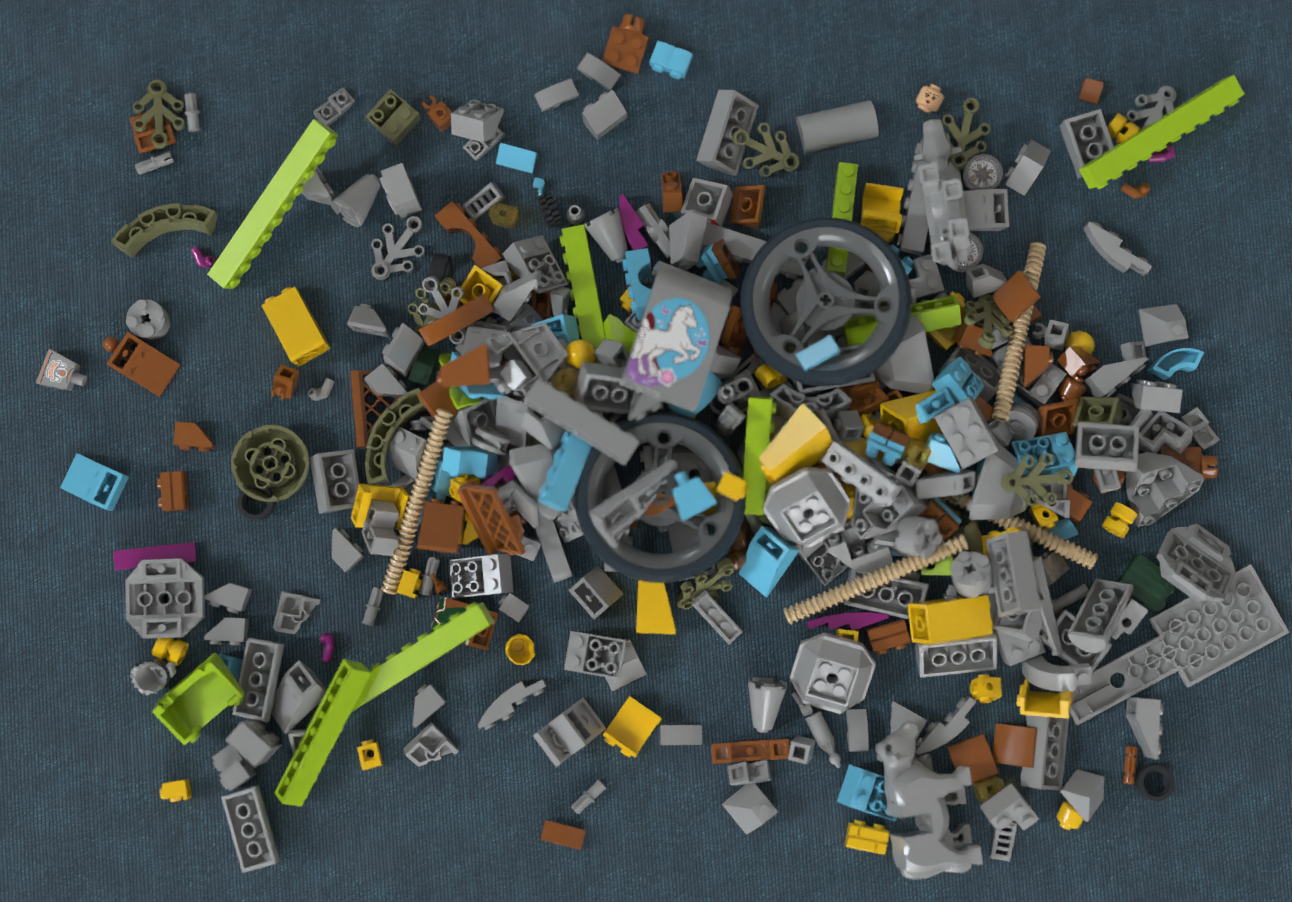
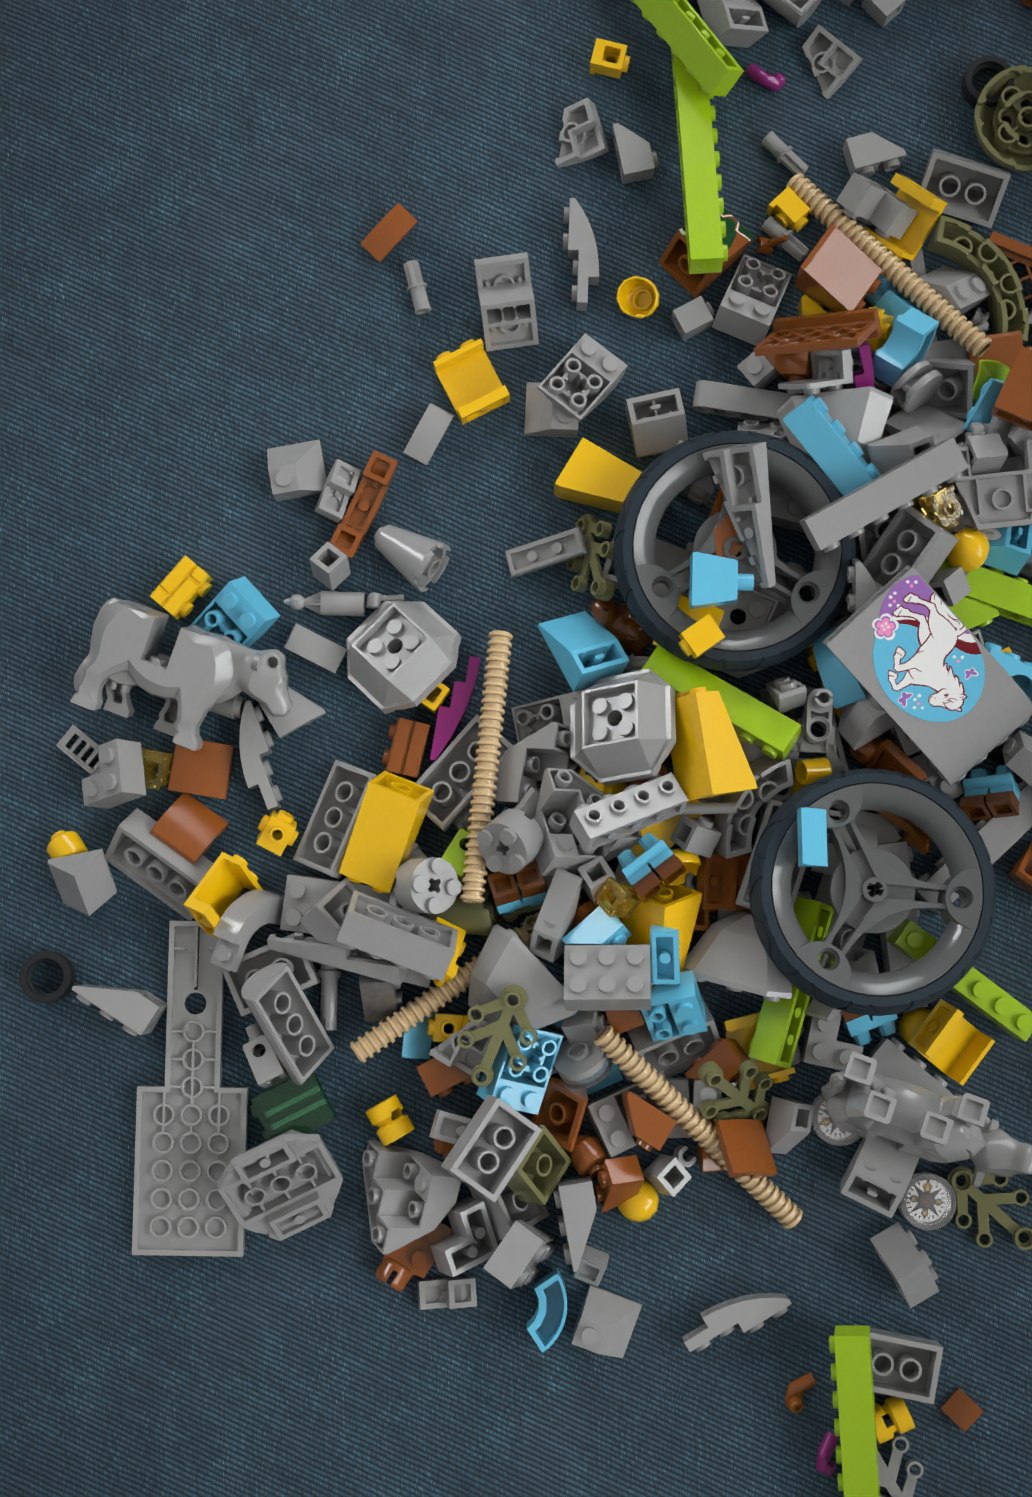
camera: 125 degrees right, 0 degrees up
(1130, 765) = (85, 959): dark orange axle -> none

